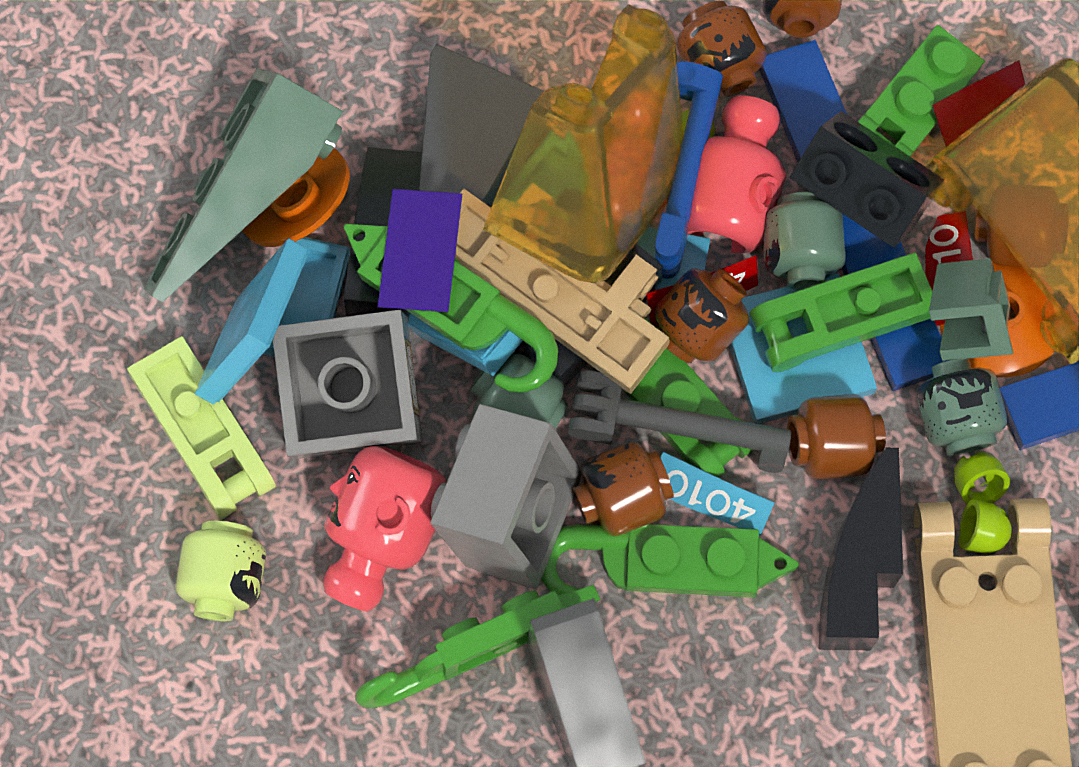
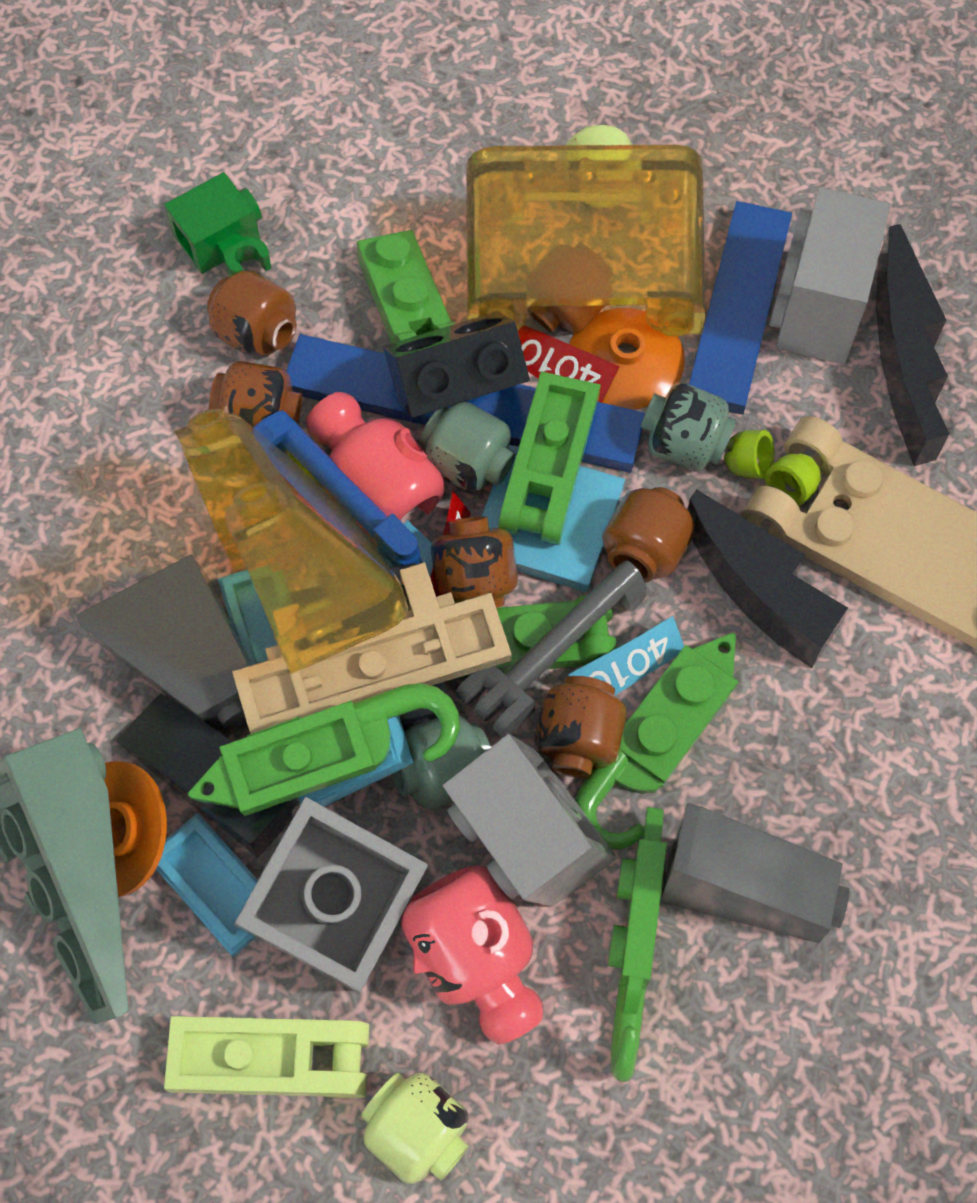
camera: 50 degrees left, 5 degrees down
(252, 322) = (213, 939): medium azure tile -> none
(420, 250) = (264, 743): dark purple sticker -> none
(974, 310) = (624, 359): sand green window -> none
(975, 101) = (445, 255): dark red sticker -> none

